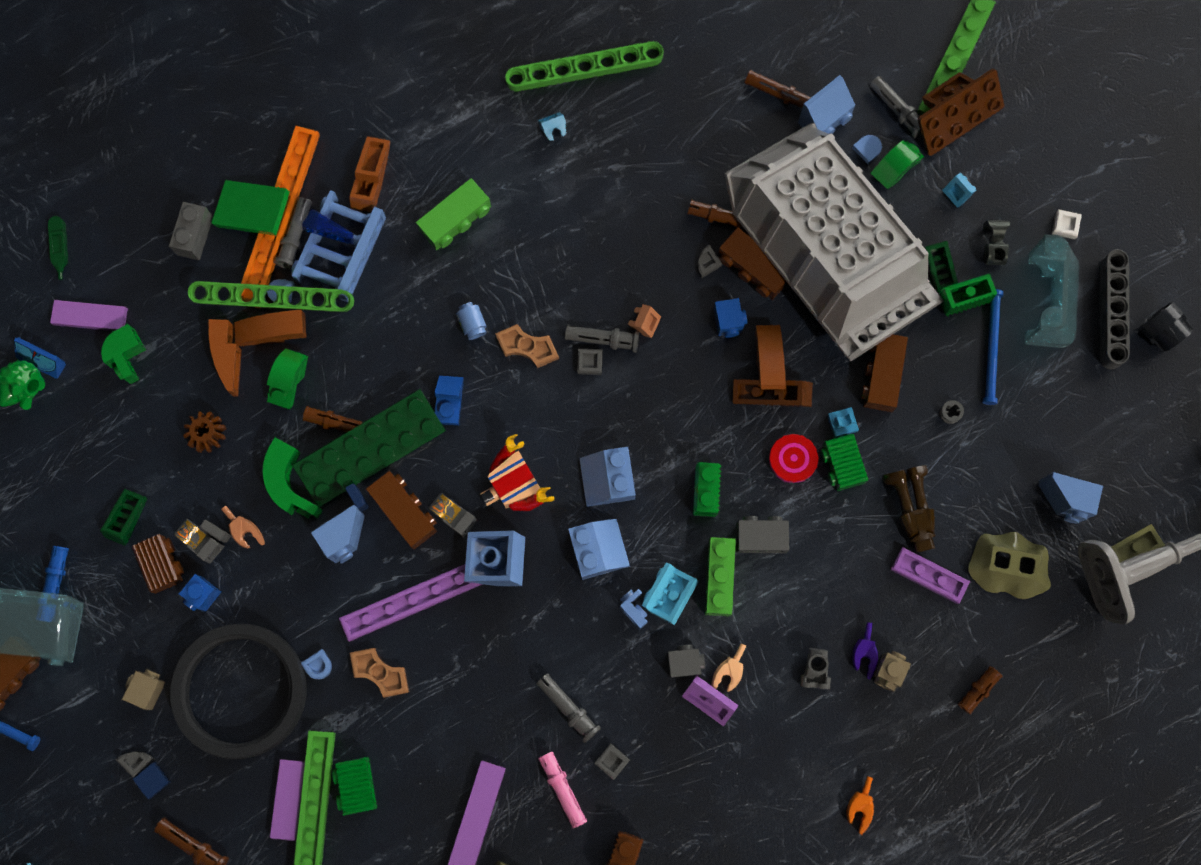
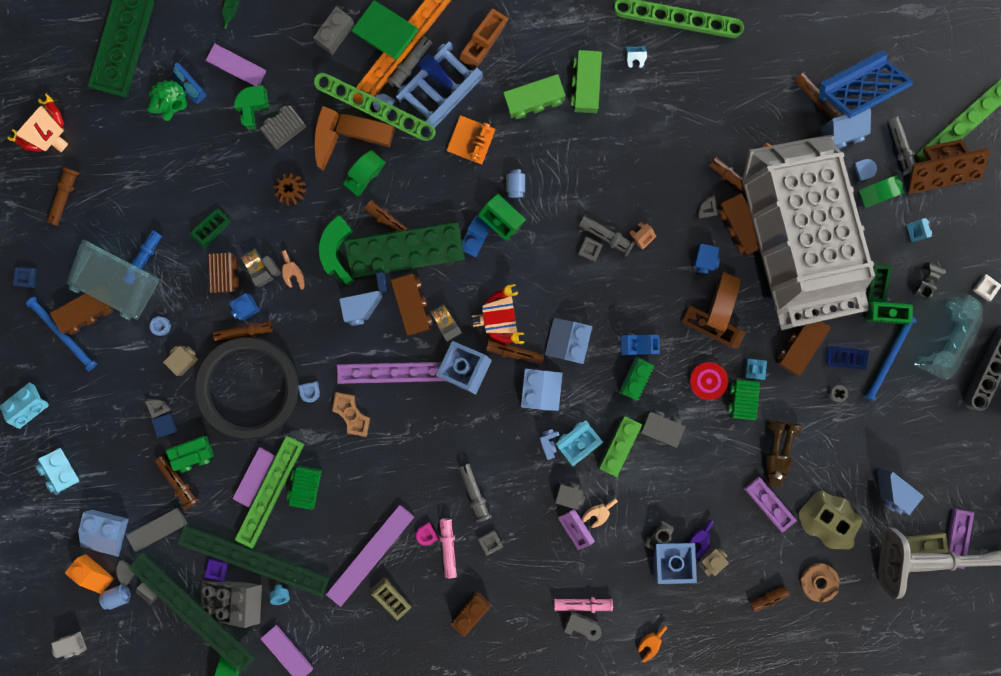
camera: 20 degrees right, 10 degrees up
(103, 659) = (160, 326): none -> medium blue tile
(170, 363) = (282, 126): none -> dark grey brick
(196, 801) = (190, 453): none -> green brick
(218, 618) = (243, 331): none -> reddish brown pin
(399, 292) = (471, 139): none -> orange hinge
(470, 364) = (501, 217): none -> green brick
(508, 175) = (586, 81): none -> bright green brick
(529, 784) = (426, 535): none -> dark pink tile
(537, 349) = (555, 224): medium nougat tile -> none
(548, 517) = (492, 347): none -> reddish brown pin
(694, 447) = (640, 344): none -> blue brick
(767, 788) = (584, 605): none -> bright pink pin
(768, 817) = (582, 625): none -> dark grey leg
(814, 48) = (855, 77): none -> blue fence
(846, 692) = (674, 563): none -> medium blue slope
(941, 357) = (864, 358): none -> clear blue slope
(1017, 649) = (809, 578): none -> medium nougat tile
(1168, 516) = (959, 532): none -> medium lavender tile

